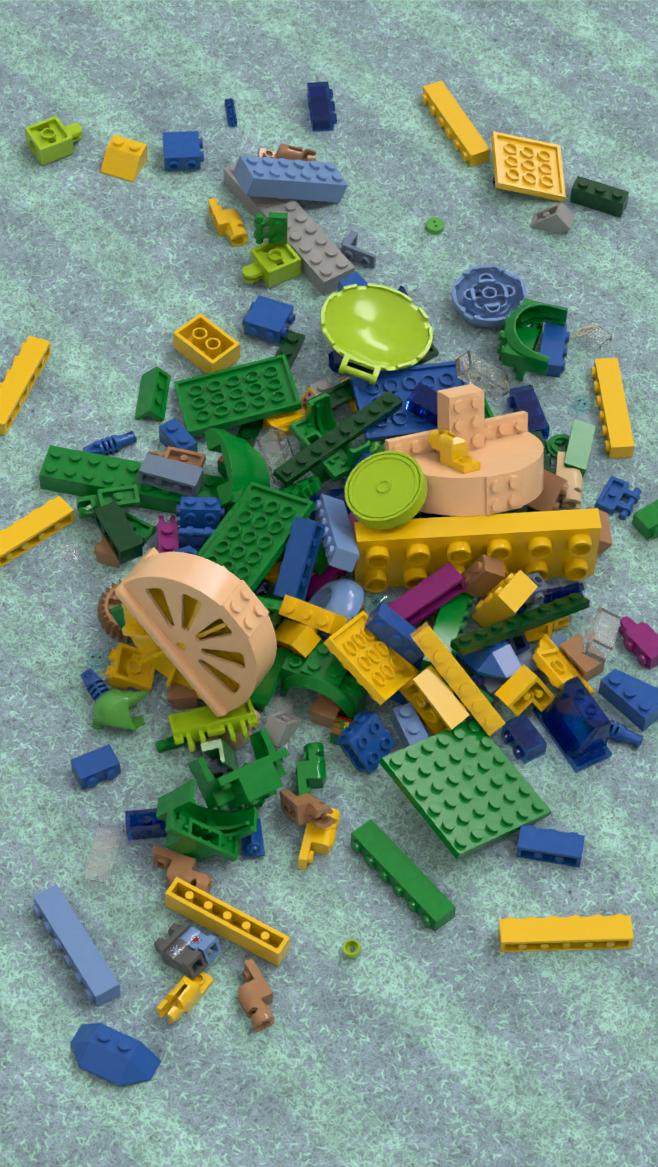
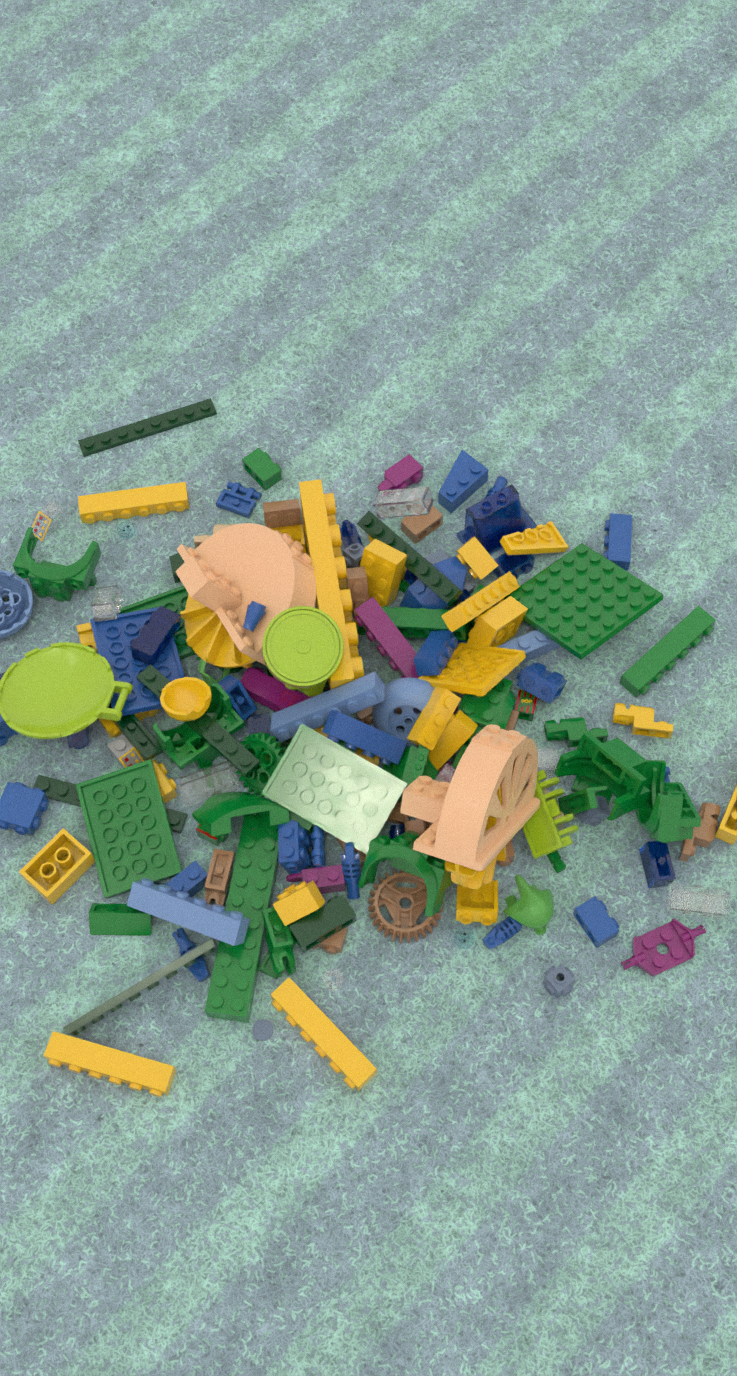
camera: 90 degrees left, 10 degrees up
(31, 498) = (262, 1030): none -> sand blue piece
(38, 726) = (557, 987): none -> sand blue brick
(57, 808) = (675, 936): none -> magenta plate
(83, 408) = (134, 991): none -> plate
(140, 509) = (298, 901): none -> yellow brick
(141, 429) = (188, 912): none -> medium blue brick
(171, 475) = (250, 875): sand blue brick -> none
(281, 727) = (548, 750): light grey slope -> none
(305, 809) = (623, 721): medium nougat plate -> none
(349, 414) = (186, 698): none -> yellow cylinder
(427, 452) = (254, 614): none -> blue cone
(453, 451) = (255, 589): yellow plate -> none
(525, 400) = (142, 570): clear blue brick -> none
(549, 761) = (534, 541): none -> yellow wing
(553, 346) = (59, 550): blue brick -> none
(555, 442) = (178, 537): green gear -> none
(555, 664) = (439, 536): yellow wing -> none
(565, 933) = (701, 530): yellow brick -> none
(579, 445) = (186, 524): panel -> none

